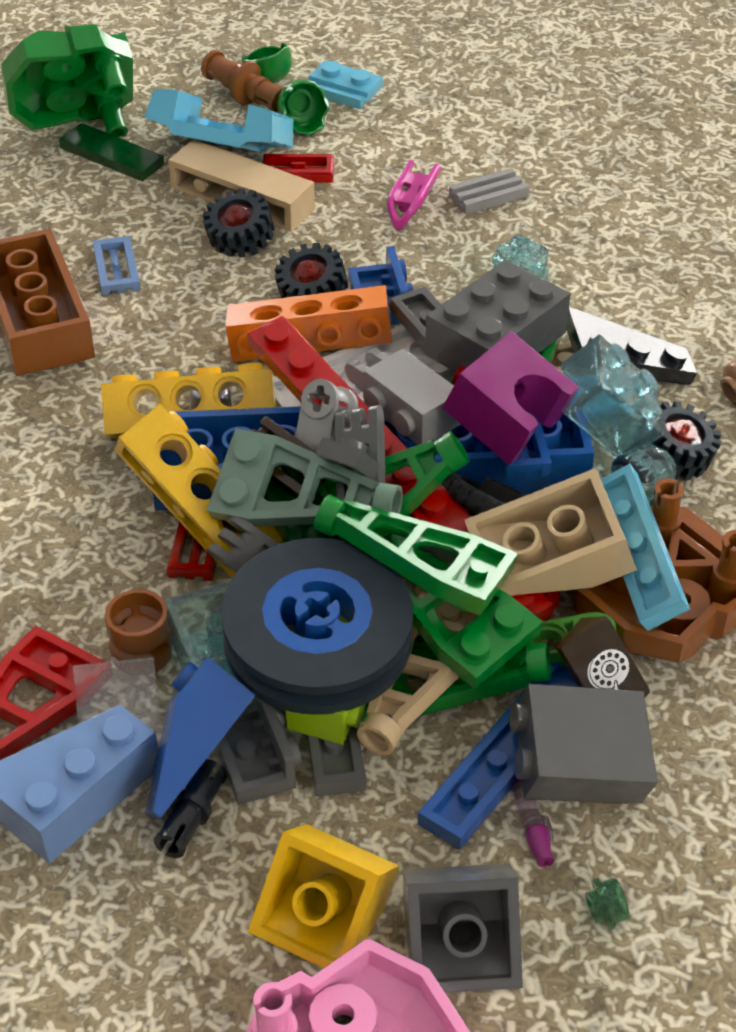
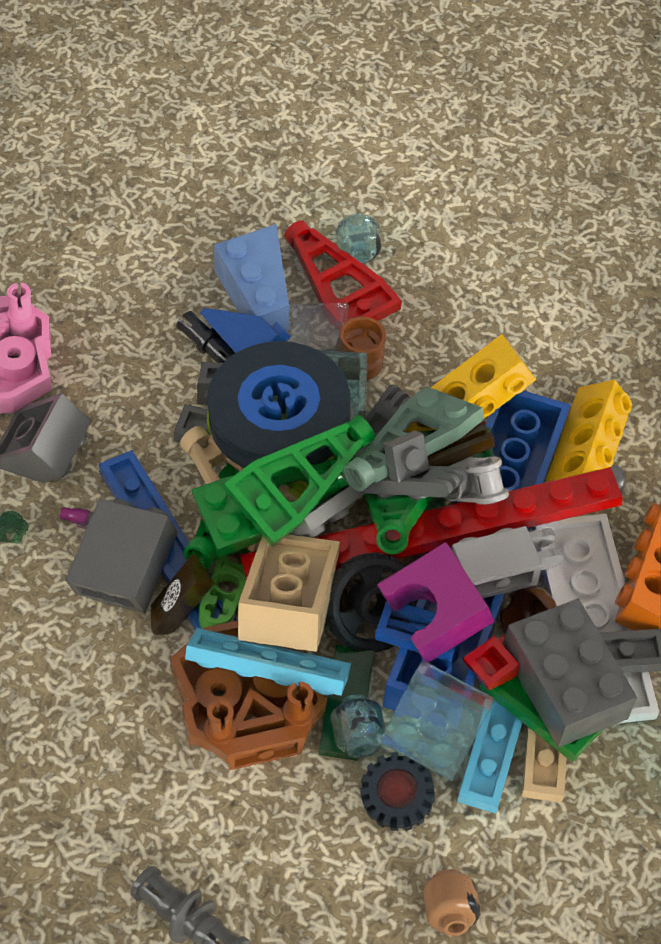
camera: 110 degrees right, 10 degrees up
(321, 895) = (105, 381): yellow slope -> none
(661, 358) = (532, 807): wing -> none

